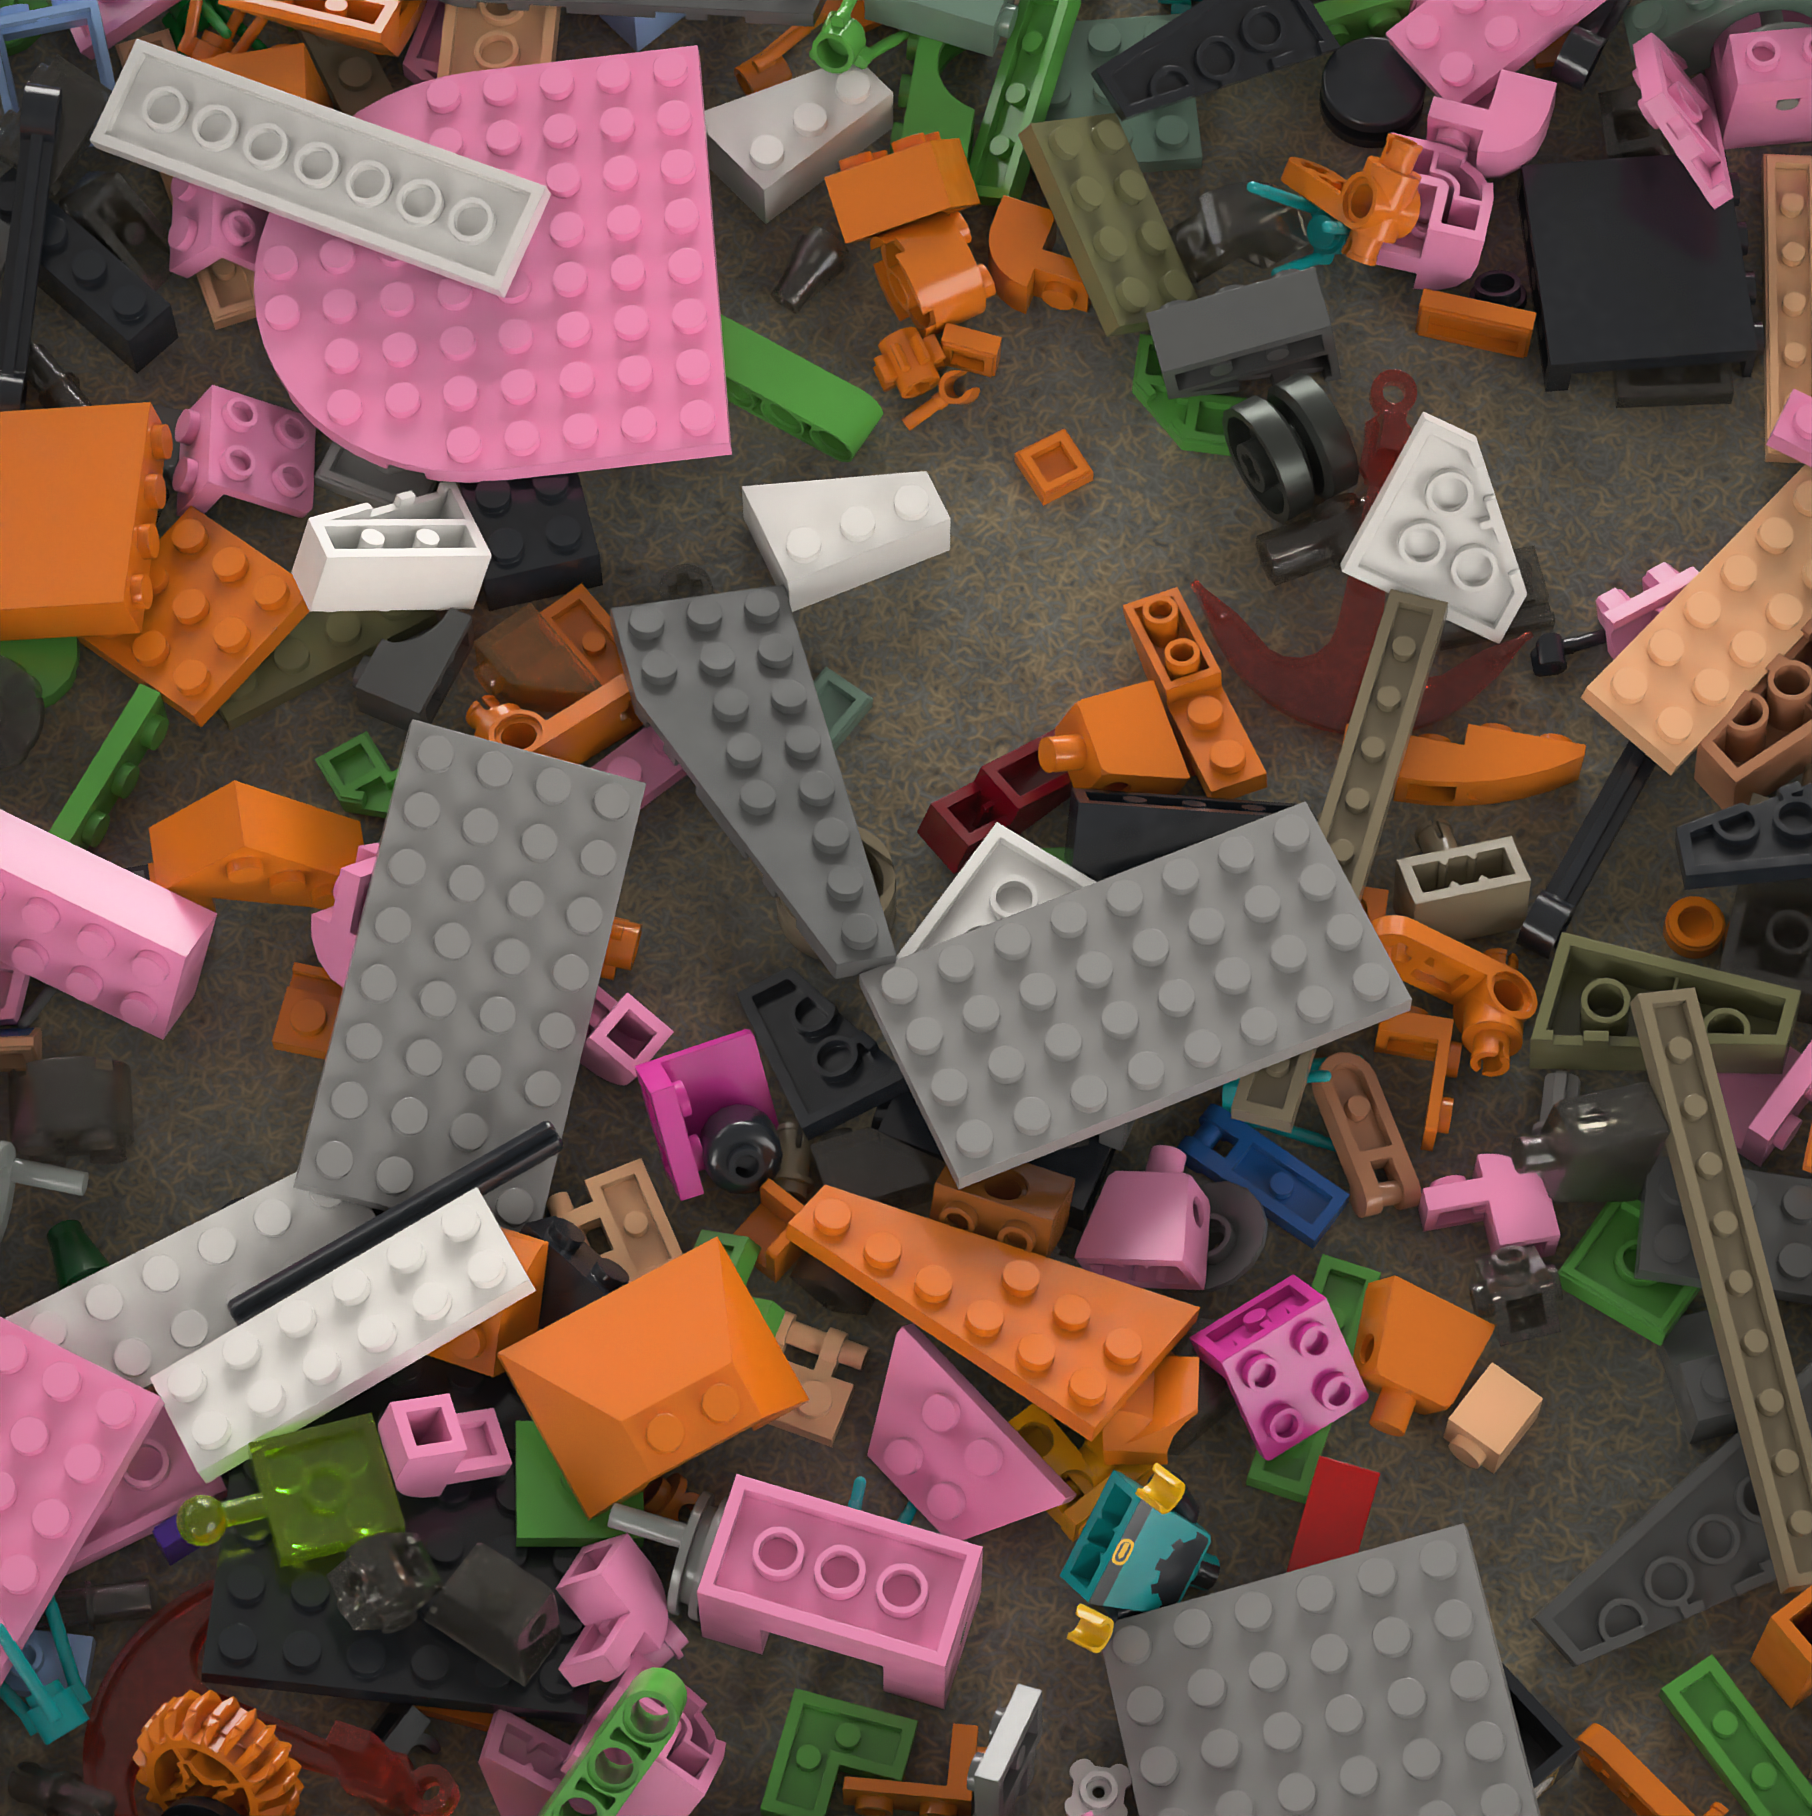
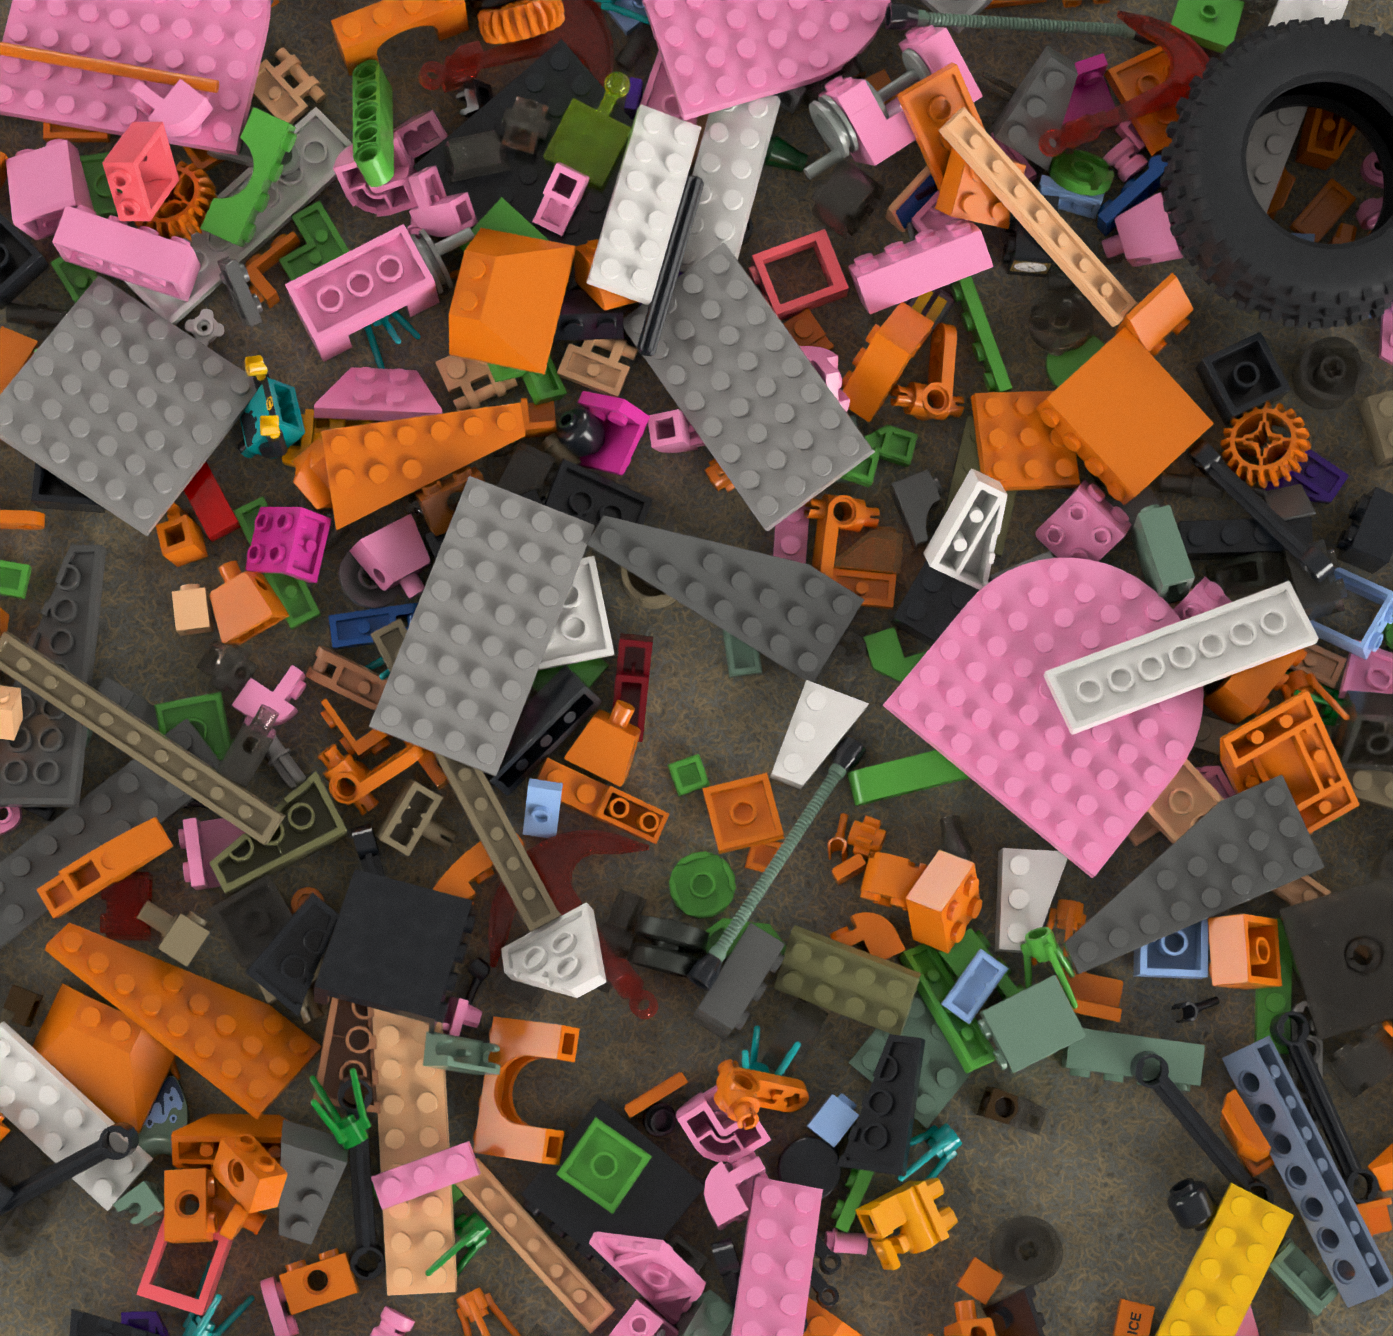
camera: 125 degrees right, 15 degrees up
(186, 1059) = (828, 261): none -> coral window
(194, 323) = (1162, 553): none -> sand green brick
(244, 758) = (940, 381): none -> orange piece
(653, 539) = (887, 655): none -> bright green tile
(968, 77) = (974, 986): none -> light blue plate
(1030, 525) = (743, 813): none -> orange plate
(1048, 638) = (688, 775): none -> bright green tile
(1167, 522) = (705, 895): none -> bright green tile
(1272, 357) = (707, 969): none -> sand green hose
(1278, 746) = (542, 808): none -> light blue plate
(1287, 113) = (833, 1119): none -> light blue brick
(1417, 1508) = (181, 538): none -> orange brick
(1624, 281) = (604, 1165): none -> bright green plate
(1644, 727) = (396, 948): none -> black panel
(1681, 546) = (459, 1054): none -> sand green hinge
(1709, 443) = (499, 1127): none -> orange arch

